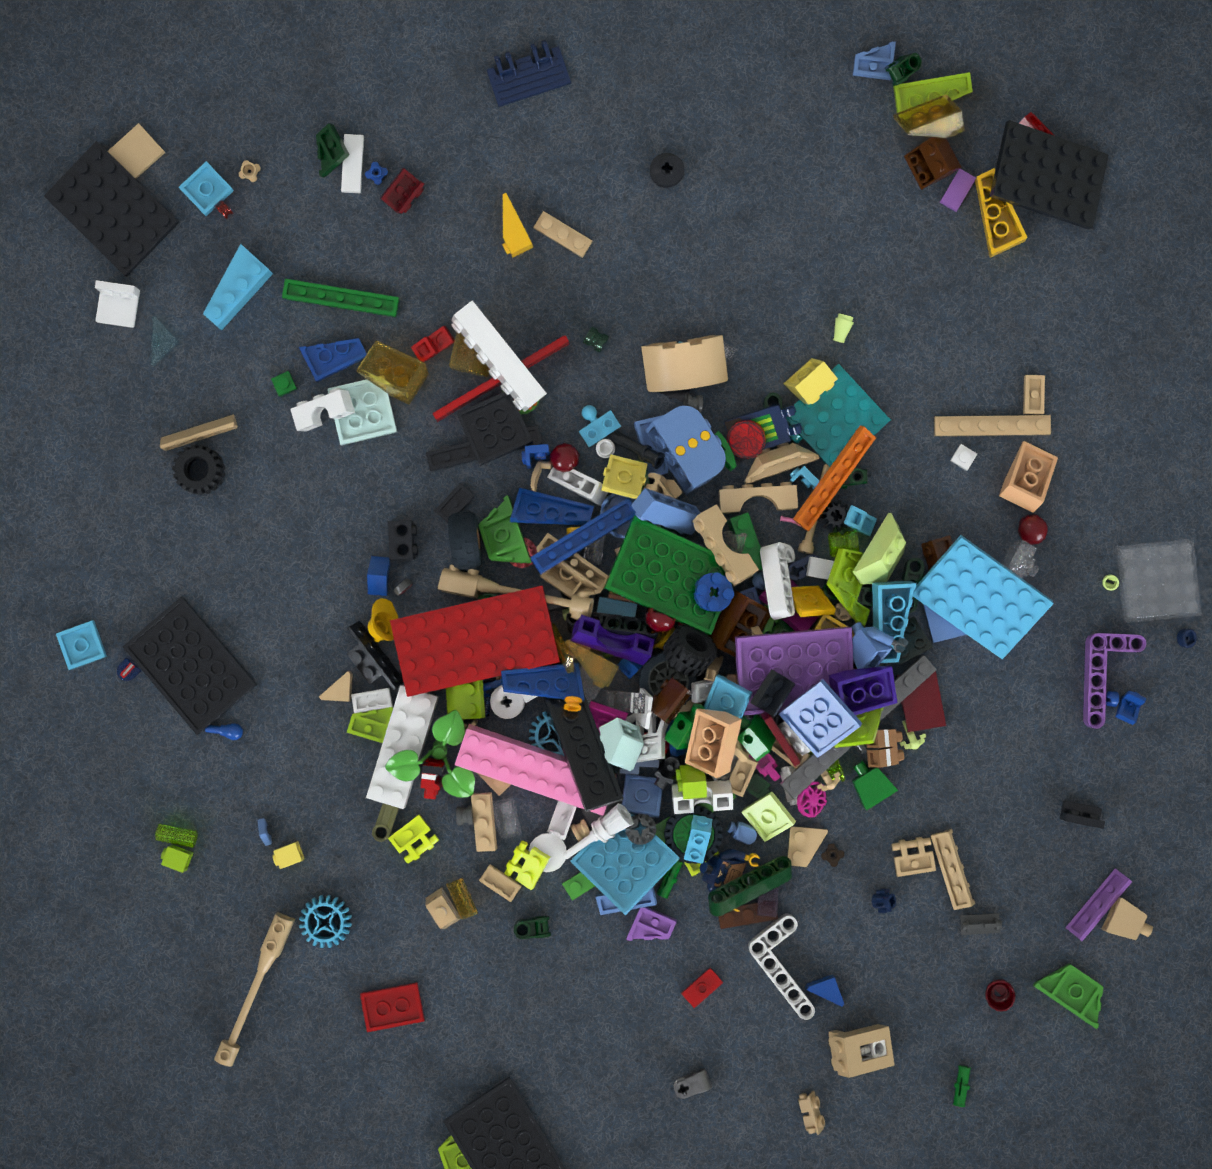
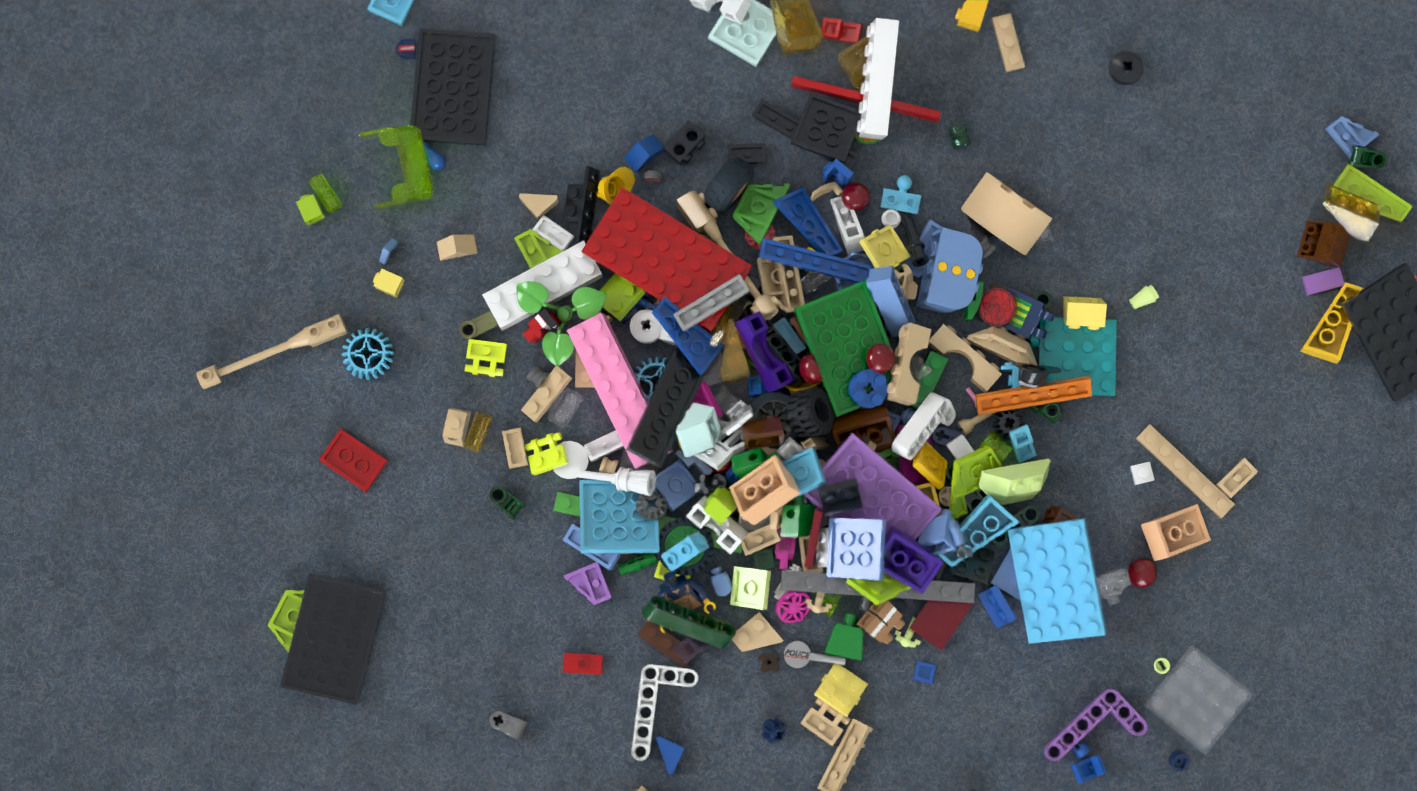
camera: 45 degrees right, 5 degrees down
(217, 751) = (413, 162): none -> clear neon green windscreen
(311, 779) = (456, 246): none -> tan slope
(540, 643) = (711, 303): none -> light grey plate
(572, 703) = (691, 368): light orange bush -> none
(701, 561) = (880, 358): none -> dark red hair
(822, 462) = (1034, 375): none -> black piece
(848, 828) = (798, 655): none -> light grey piece
(902, 824) = (841, 689): none -> light yellow plate
(948, 752) = (924, 672): none -> blue tile
(954, 656) = (996, 606): none -> blue bracket

